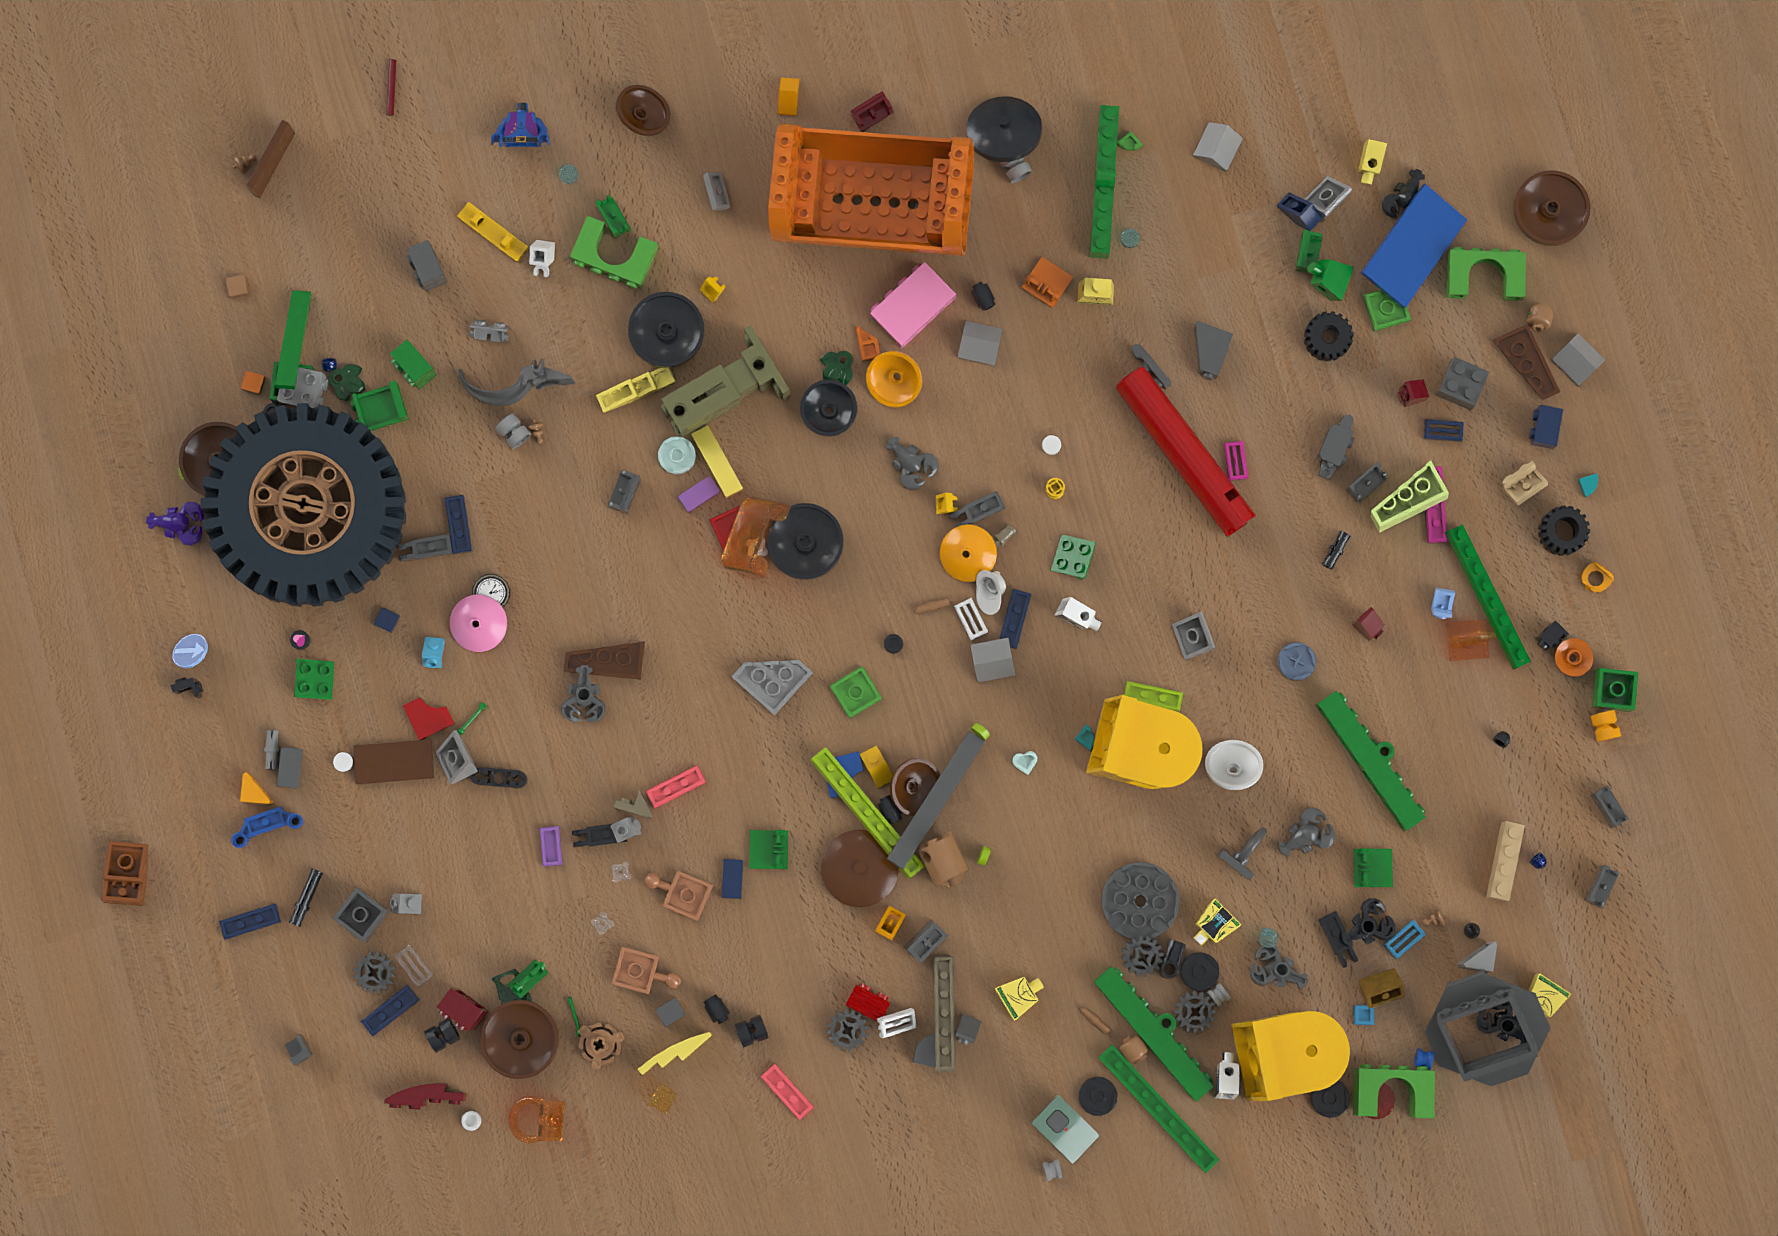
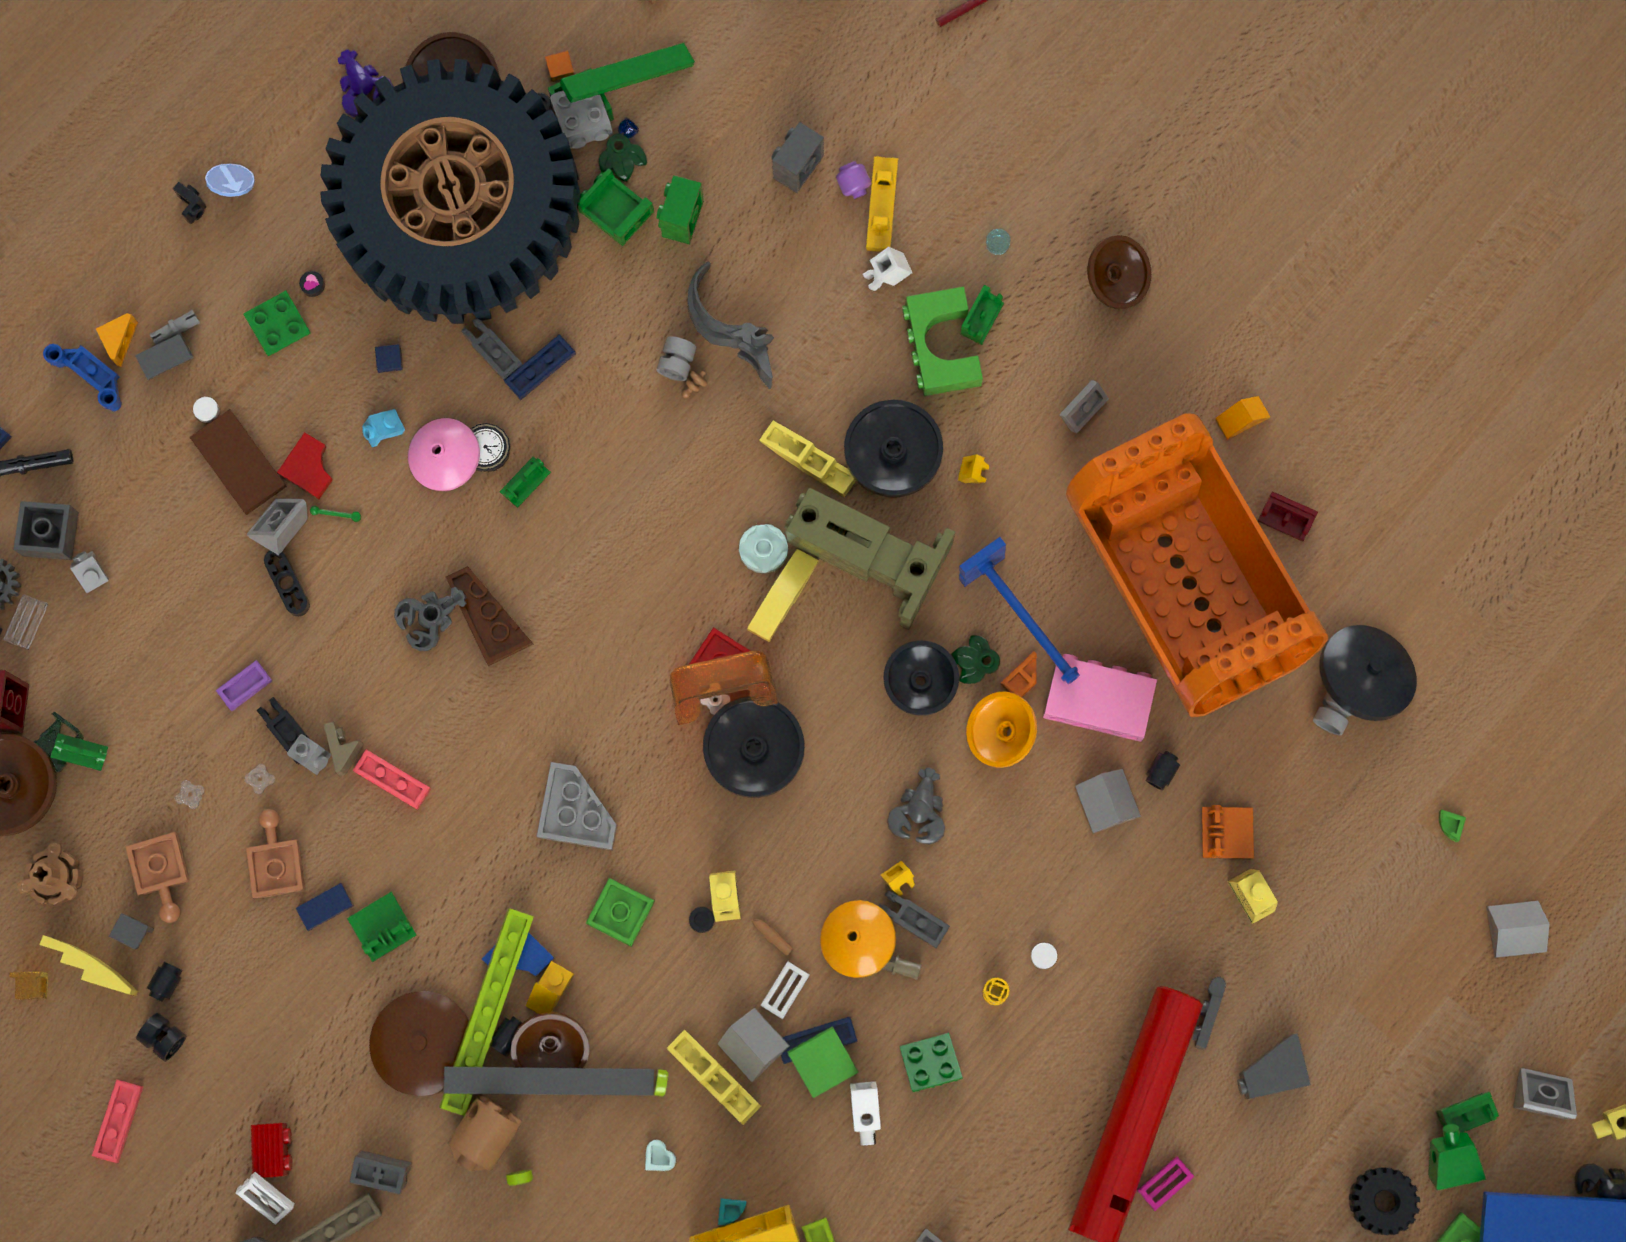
camera: 65 degrees right, 5 degrees down
(465, 239) = (853, 180): none -> medium lavender head
(482, 329) = (768, 258): light grey hinge -> none
(521, 129) = (1011, 161): blue torso -> none
(531, 581) = (525, 481): none -> green hinge
(574, 1015) = (83, 814): green hinge -> none
(624, 492) = (686, 518): dark grey hinge -> none
(699, 494) = (735, 599): medium lavender tile -> none
(781, 321) = (984, 563): none -> blue tile
(835, 1036) = (220, 1156): dark grey gear -> none
(888, 618) = (724, 896): none -> light yellow torso
(890, 923) = (376, 1117): light orange slope -> none
(989, 591) = (830, 990): white piece -> none
(997, 696) = (714, 1077): none -> light yellow slope
(1031, 622) = (822, 1062): none -> bright green tile
(1104, 181) = (1386, 823): green hinge -> none
(1130, 238) = (1341, 895): clear light blue tile -> none
(1300, 211) = (1507, 1073): dark blue slope -> none

